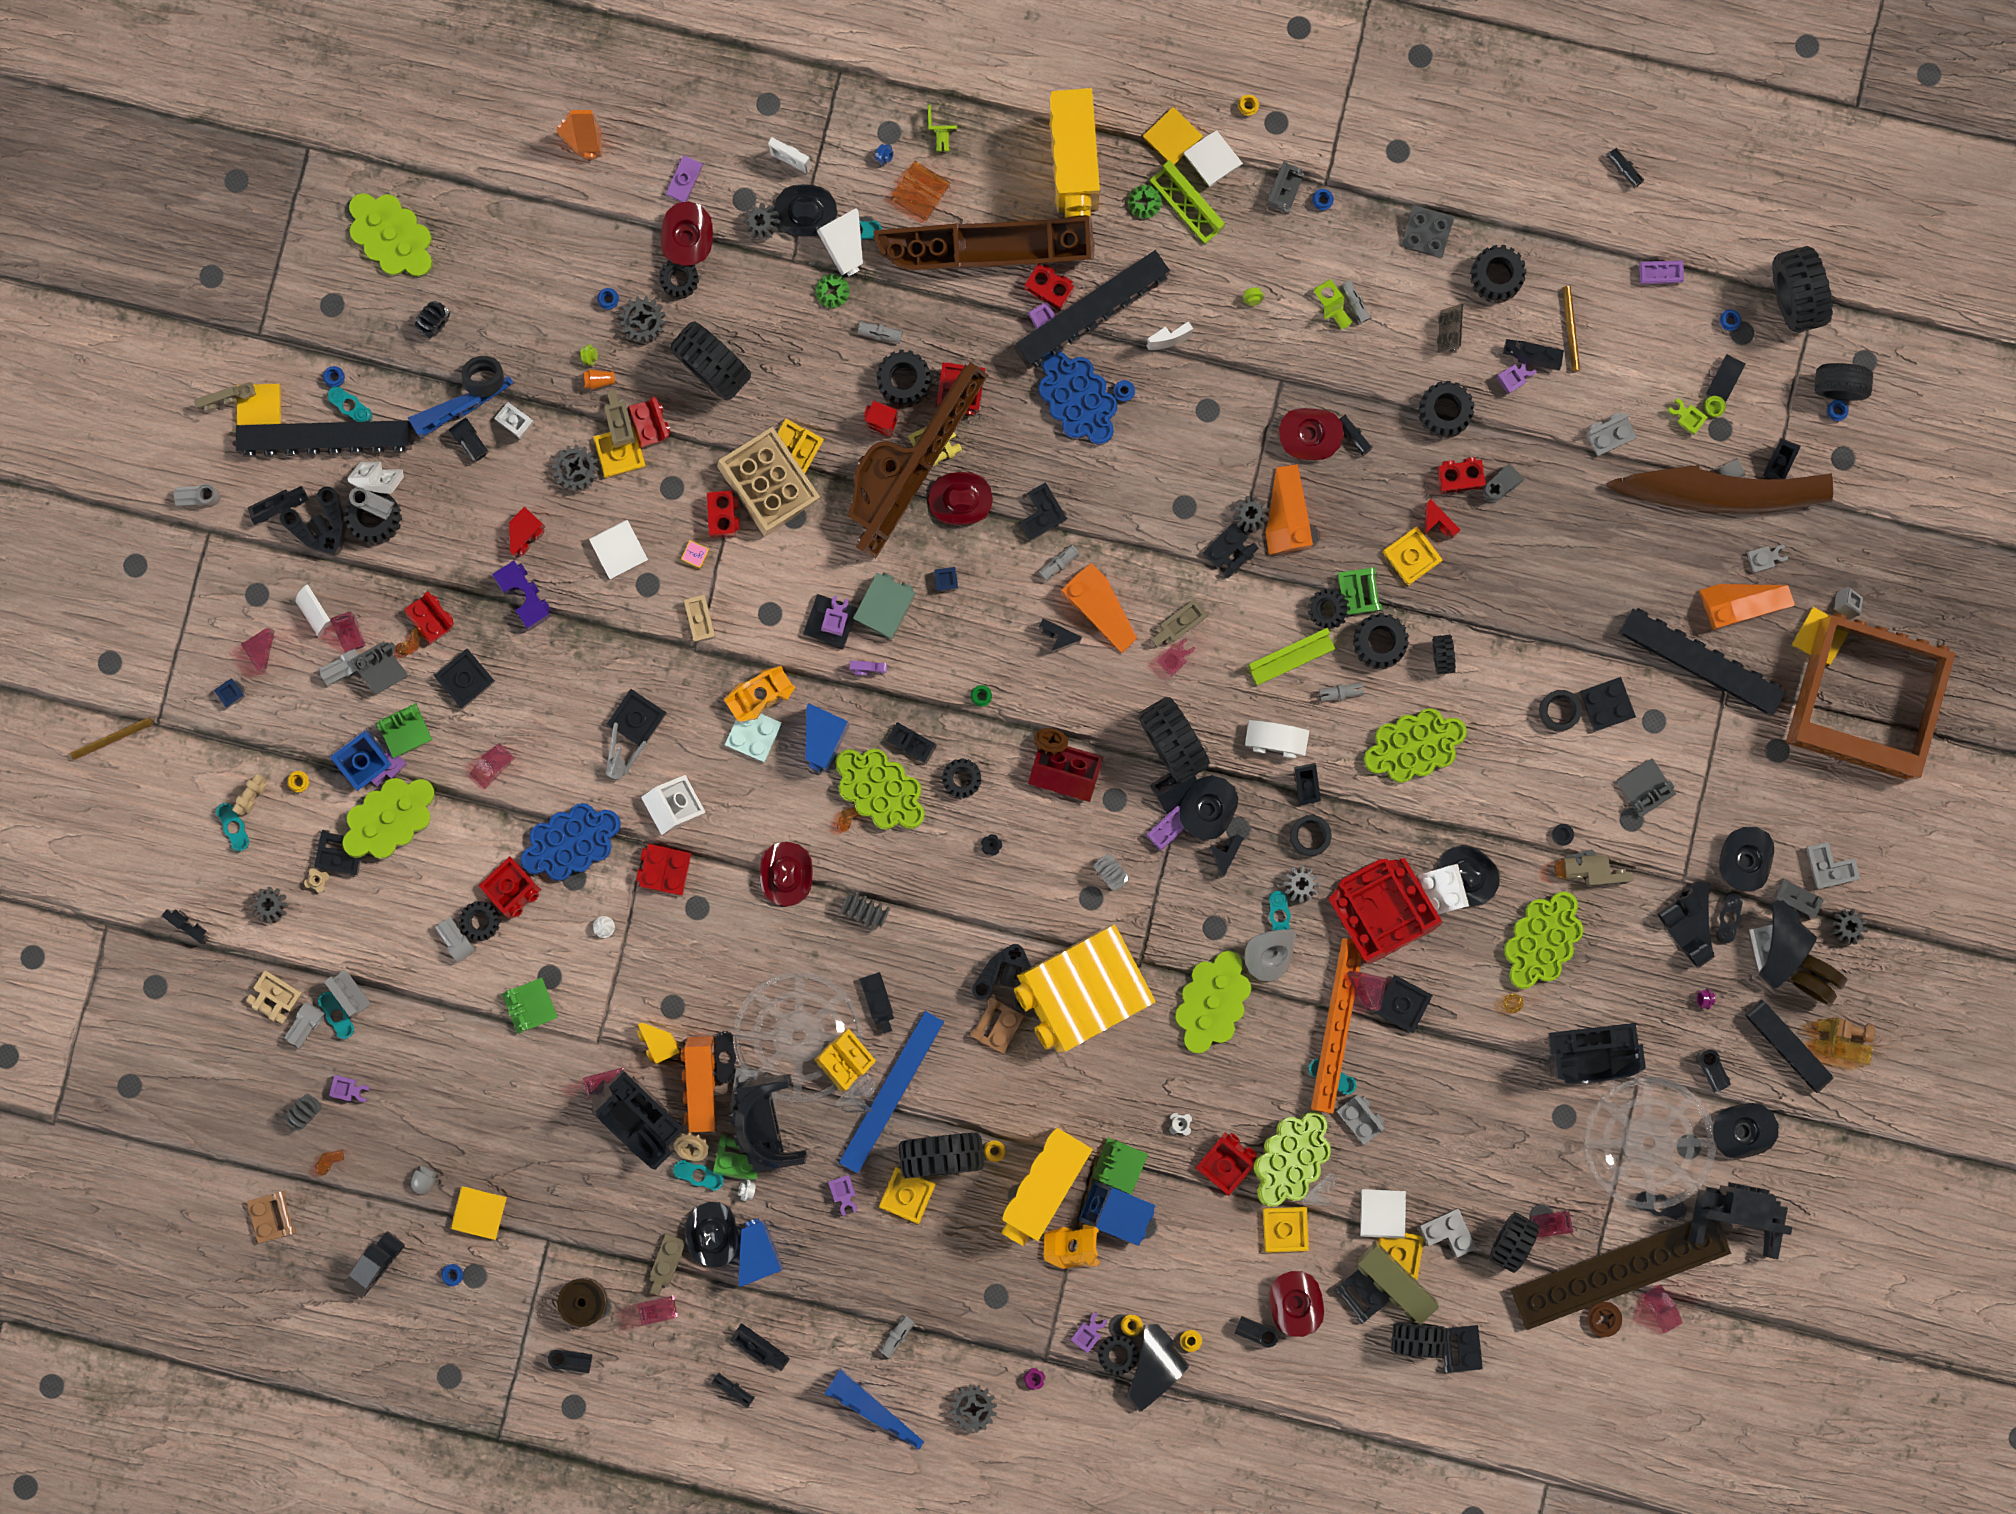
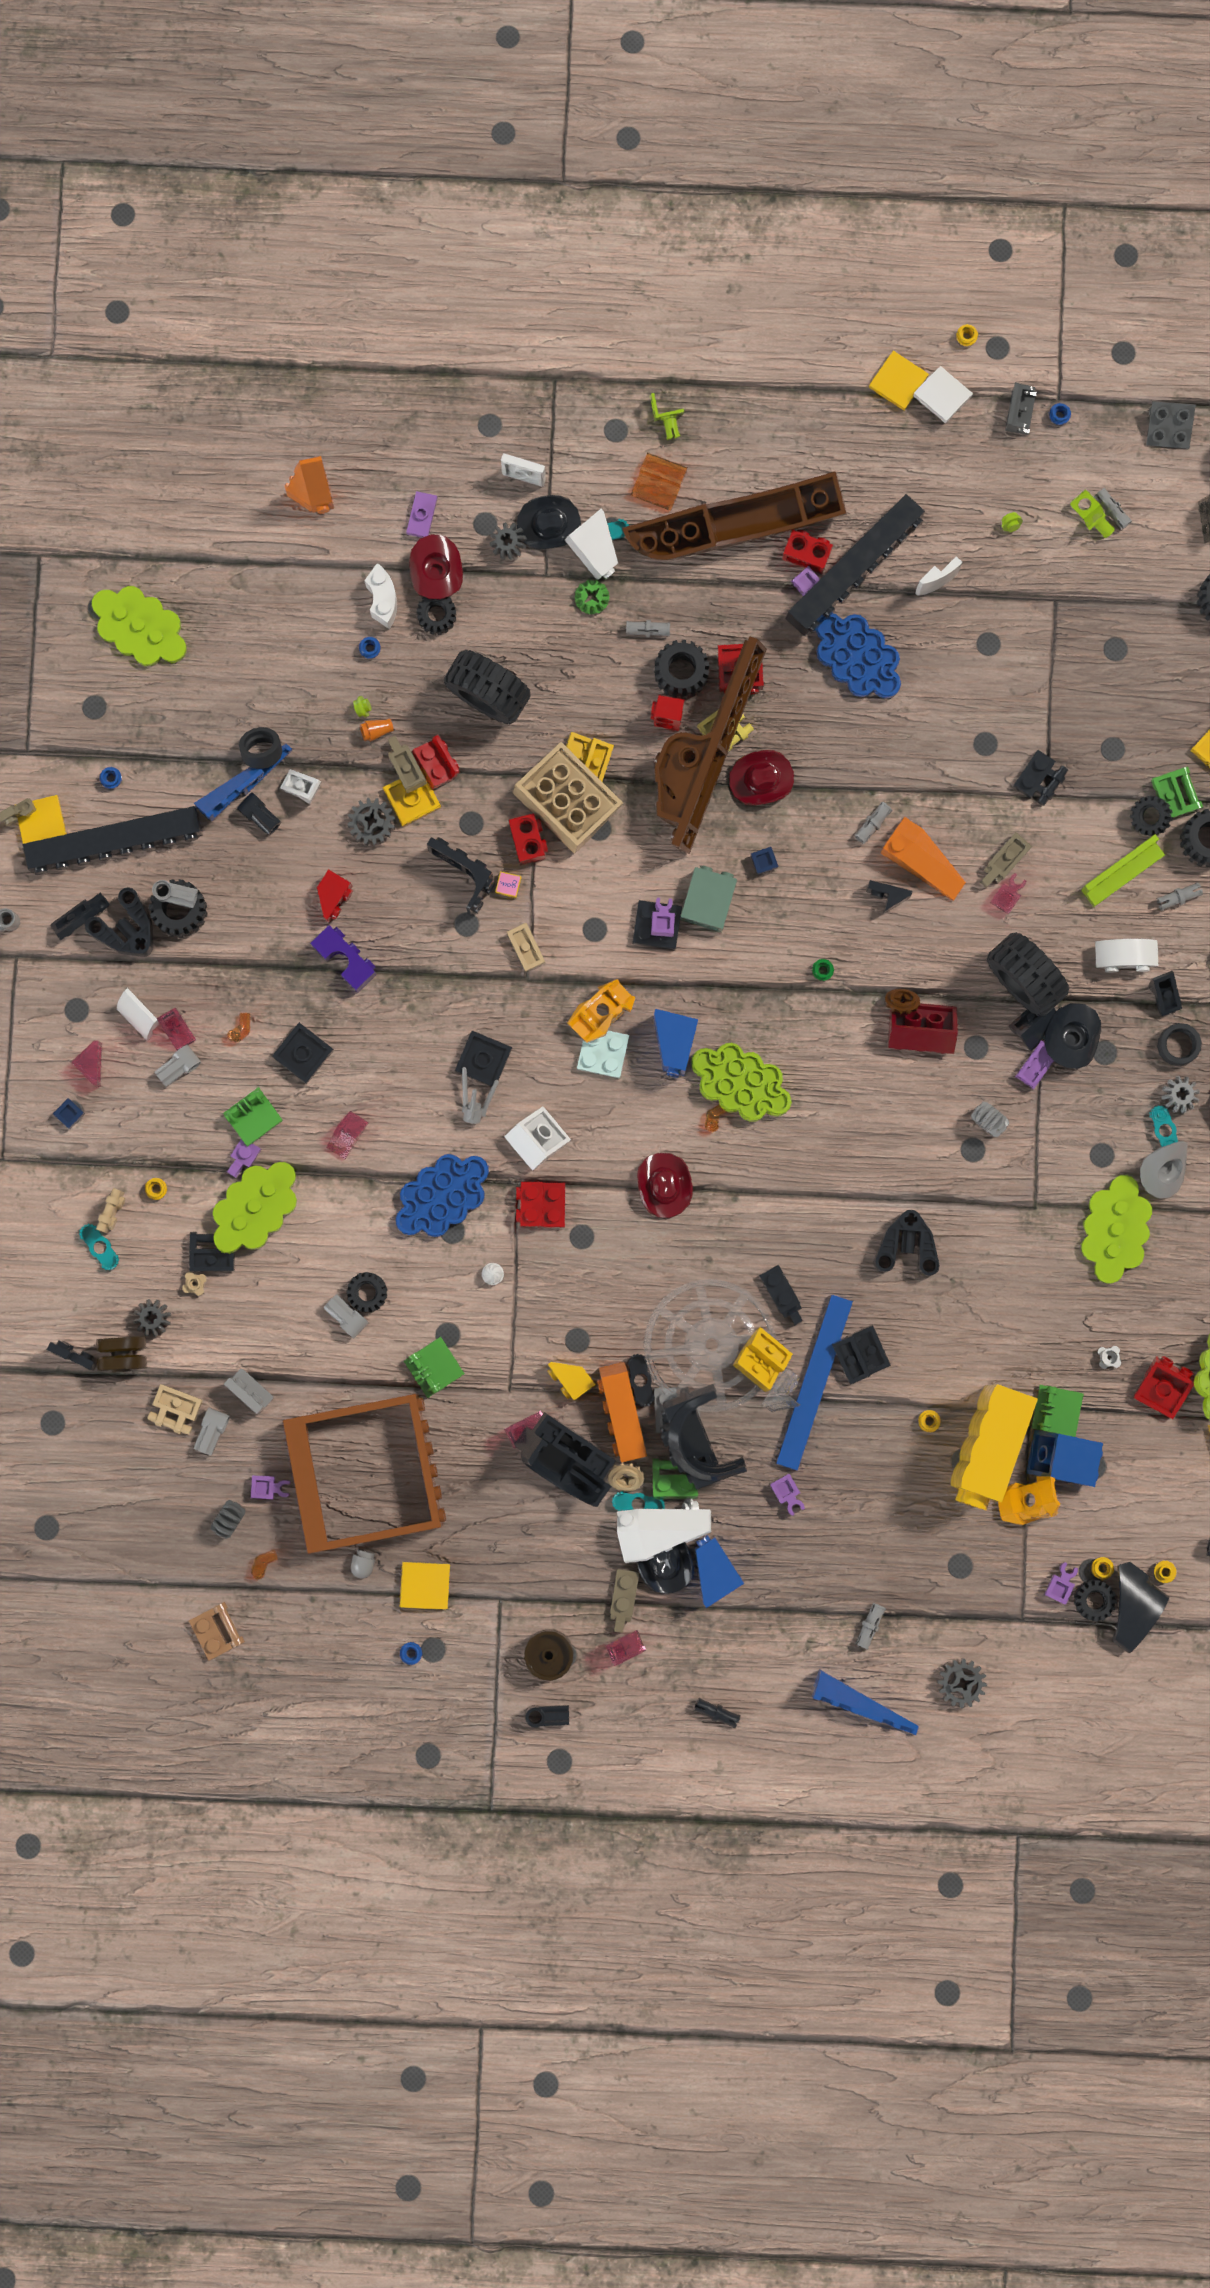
camera: 15 degrees left, 0 degrees up
(232, 935) = (121, 1354): none -> dark brown wheel
(329, 1003) = (231, 1405): teal piece -> none
(359, 413) = (119, 796): teal piece -> none
(361, 759) = (215, 1154): blue slope -> none
(372, 477) = (173, 871): white slope -> none
(373, 1264) = (330, 1658): black connector -> none
(379, 667) = (215, 1057): dark grey hinge -> none
(382, 1093) = (306, 1483): none -> dark orange door
(429, 617) = (255, 998): red bracket -> none
(432, 319) = (198, 700): black gear -> none
(510, 888) = (391, 1253): red plate -> none
(618, 549) = (430, 894): white slope -> none
(631, 252) = (384, 596): none -> white brick
(634, 321) = (416, 658): dark grey gear -> none
(669, 543) = (475, 869): none -> black bracket
(706, 1203) = (658, 1530): none -> white wedge
(759, 1347) = (734, 1665): black hinge -> none
(861, 668) = (699, 965): medium lavender plate -> none
(865, 910) = (752, 1205): dark grey piece -> none
(884, 154) = (616, 451): blue plate -> none
(907, 1196) = (851, 1482): yellow tile -> none
(911, 742) = (763, 1030): black slope -> none
(941, 1074) = (861, 1354): none -> black slope
(941, 1155) = (881, 1435): black tyre -> none
(952, 768) = (816, 1068): black tyre -> none
(991, 839) = (863, 1109): black plate -> none
(1003, 1029) = (913, 1297): medium nougat plate -> none
(1033, 1372) = (1016, 1647): magenta plate -> none
(1048, 513) = (852, 775): black plate -> none
(1074, 152) = (808, 409): yellow brick -> none
(1083, 990) = (989, 1241): yellow brick -> none
(1124, 397) = (902, 646): blue plate -> none
(1138, 209) = (879, 458): bright green gear -> none
(1193, 197) = (931, 435): lime fence -> none
(1224, 859) = (1099, 1085): black slope -> none
(1258, 517) = (1062, 741): dark grey gear -> none
(1288, 517) = (1091, 732): orange wedge -> none
(1311, 433) = (1098, 646): dark red hat -> none
(1354, 435) = (1139, 640): black pin -> none

